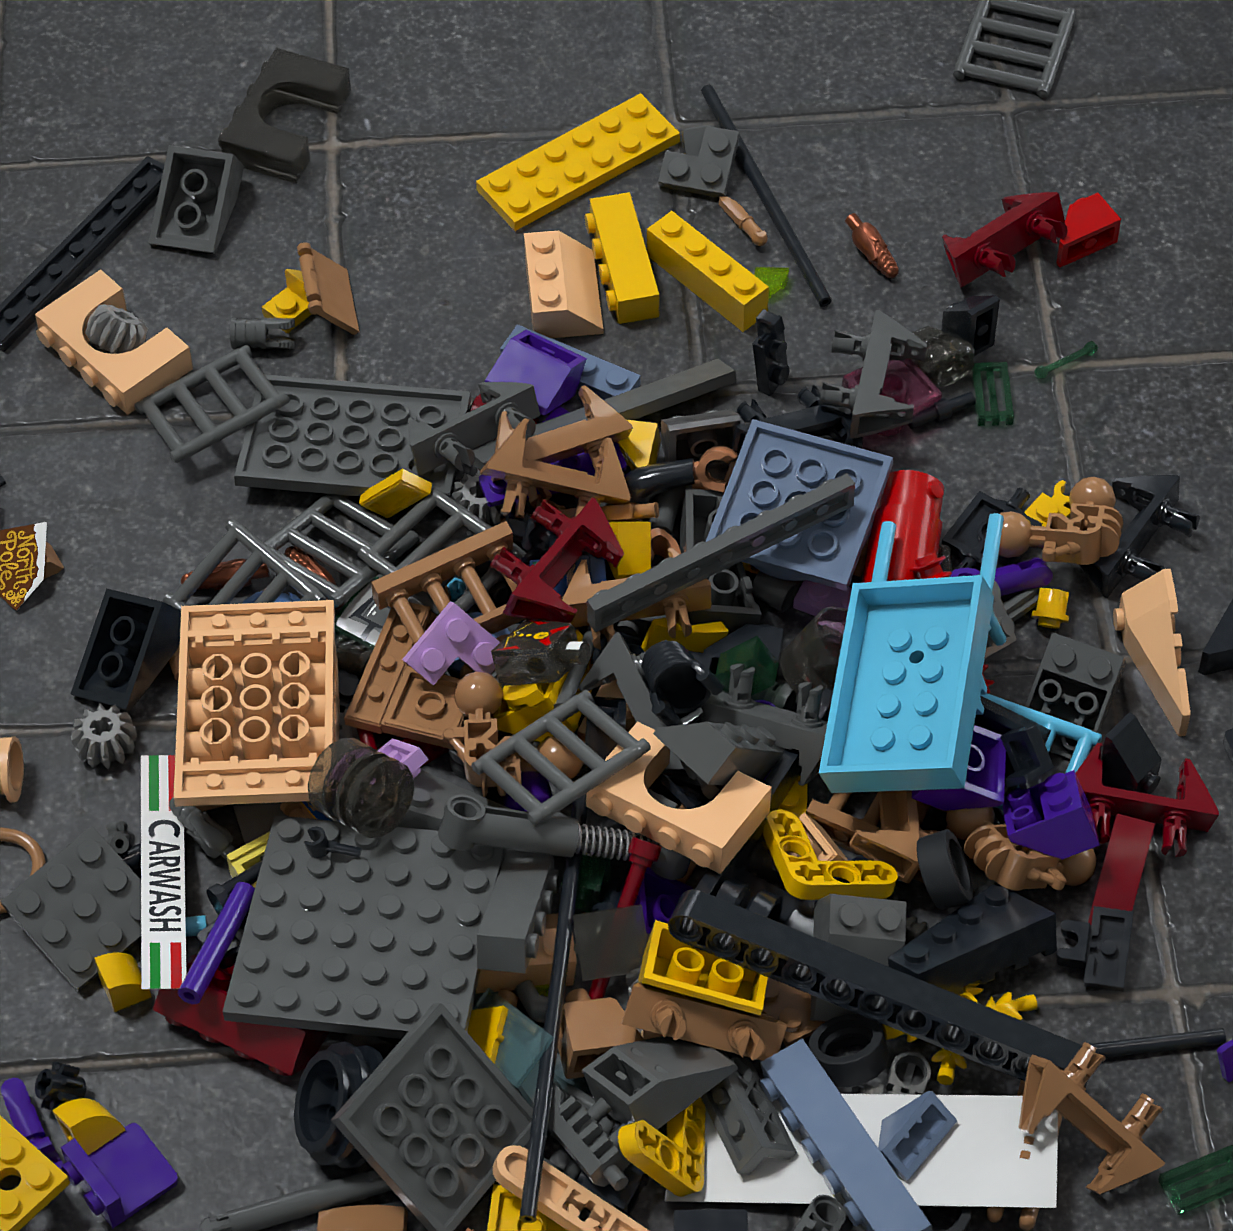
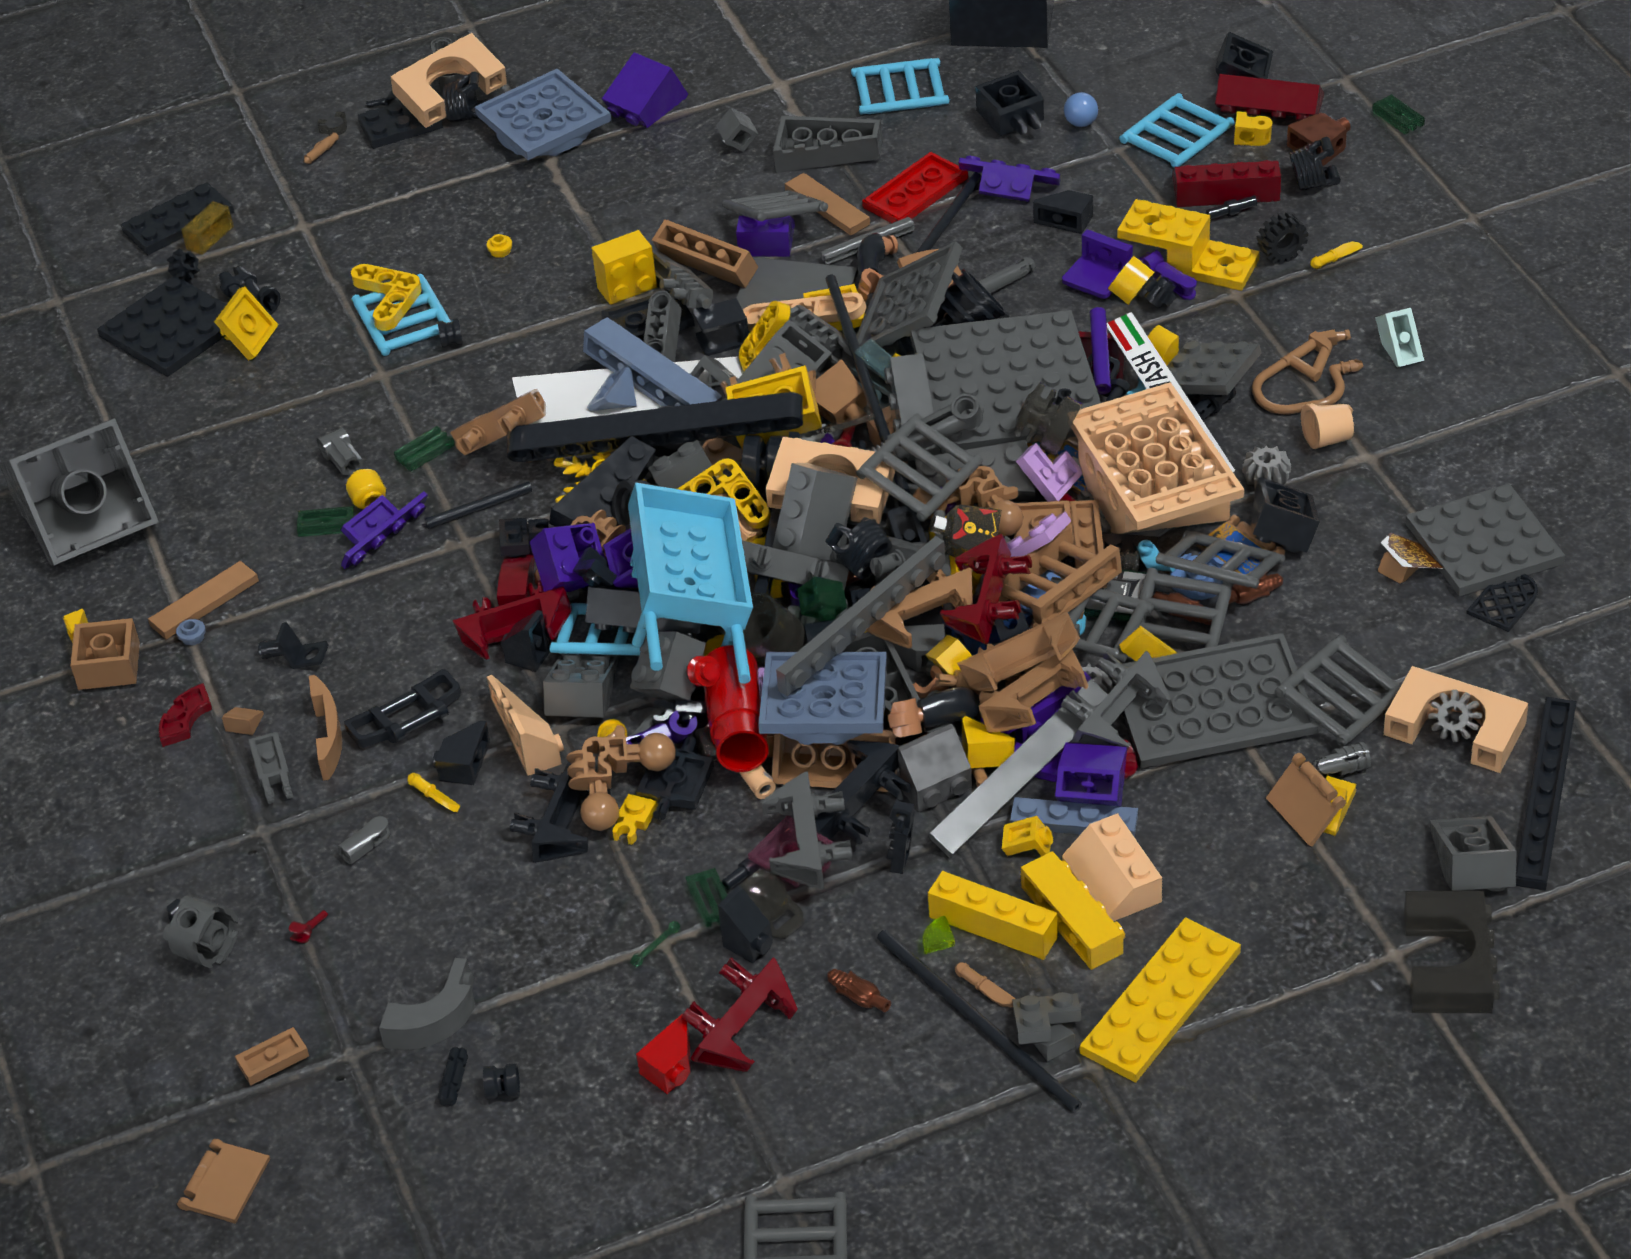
camera: 165 degrees right, 10 degrees down
(118, 836) = (1217, 416): dark grey arm -> none
(633, 347) = (1026, 835): none -> yellow bracket

